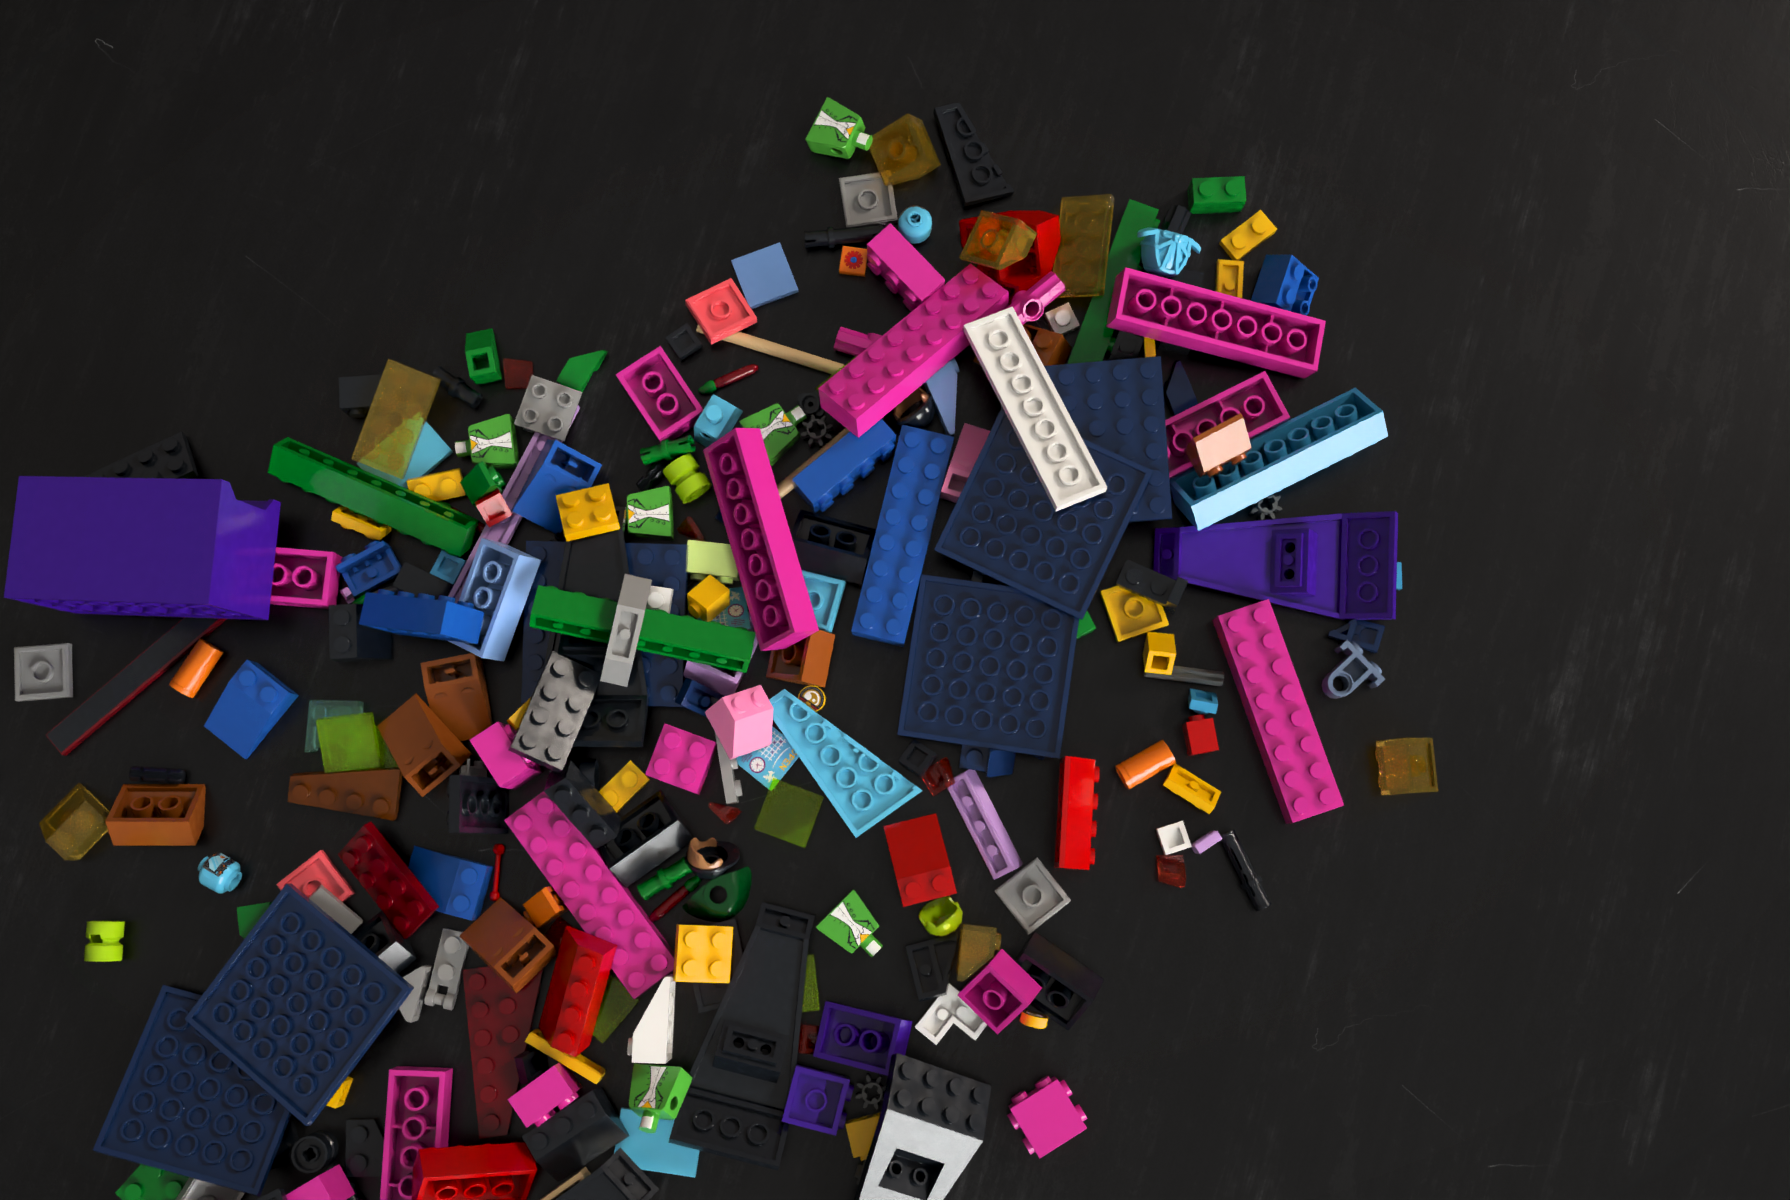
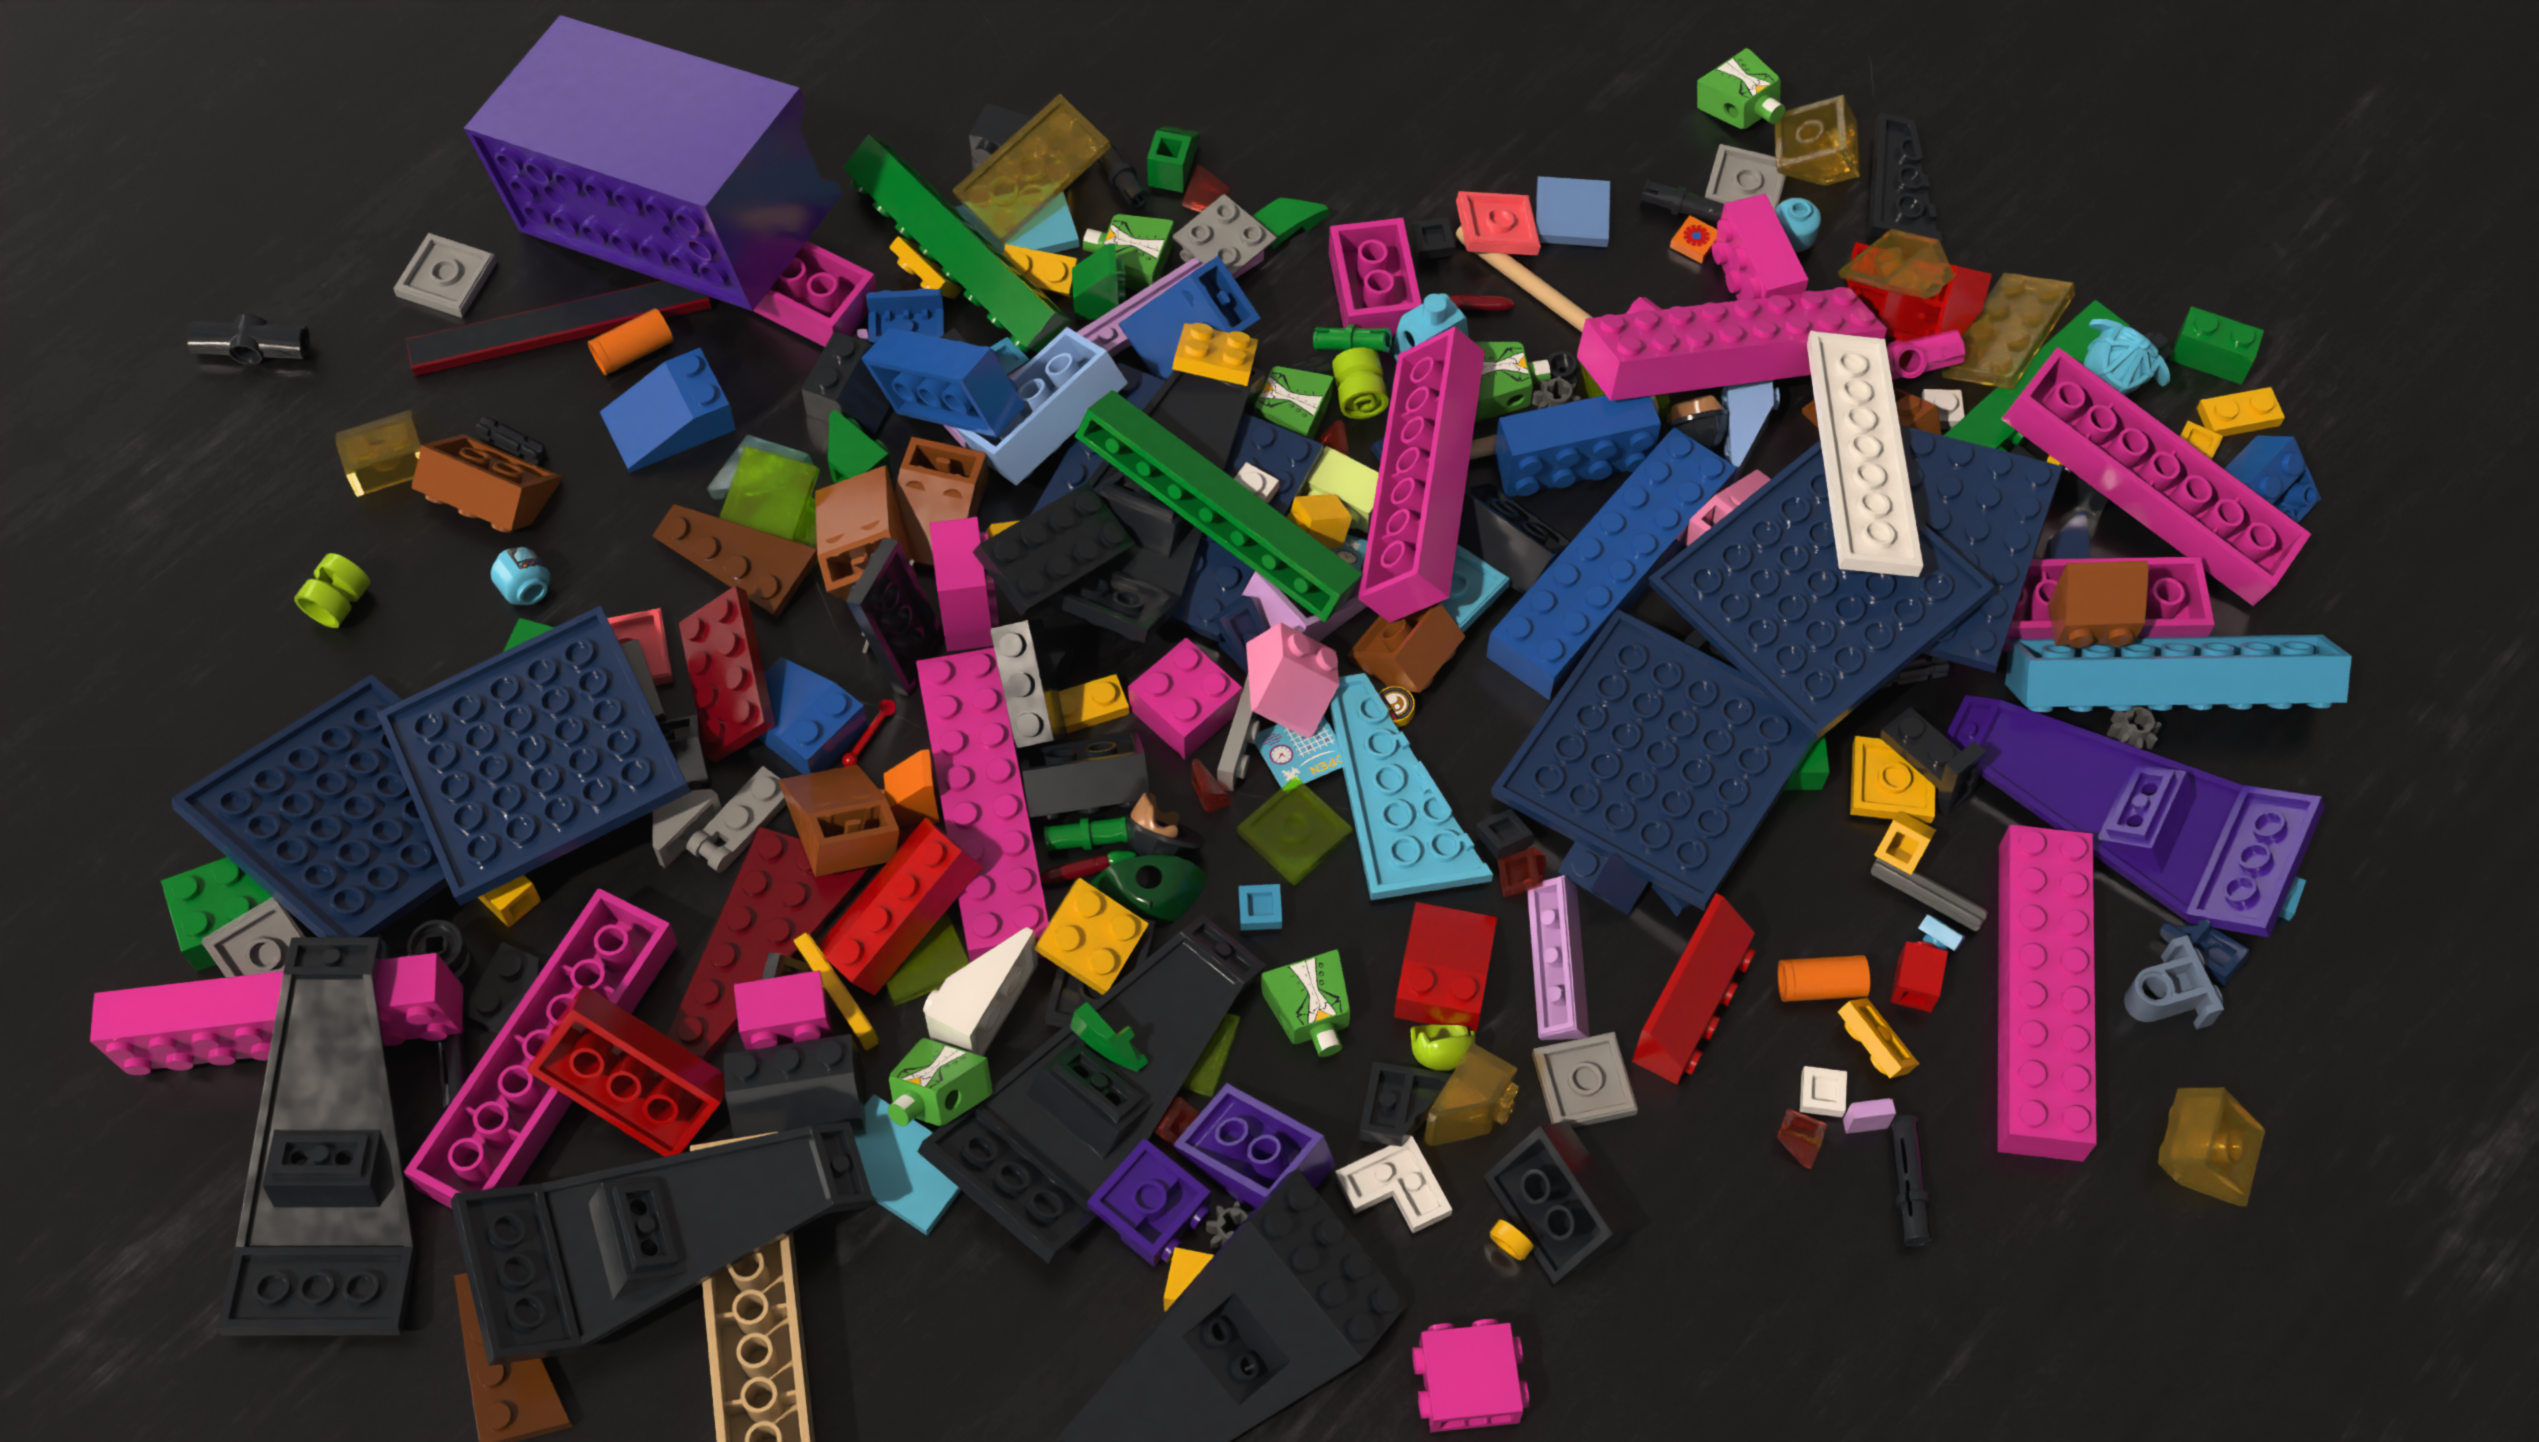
camera: 25 degrees right, 20 degrees down
(386, 686) = (852, 450): none -> green slope
(493, 508) = (1098, 311): plate -> none
(626, 630) = (1189, 491): light grey slope -> none
(756, 1016) = (1104, 1040): none -> green slope
(792, 876) = (1260, 907): none -> dark azure plate
(999, 991) = (1480, 1168): dark pink brick -> none

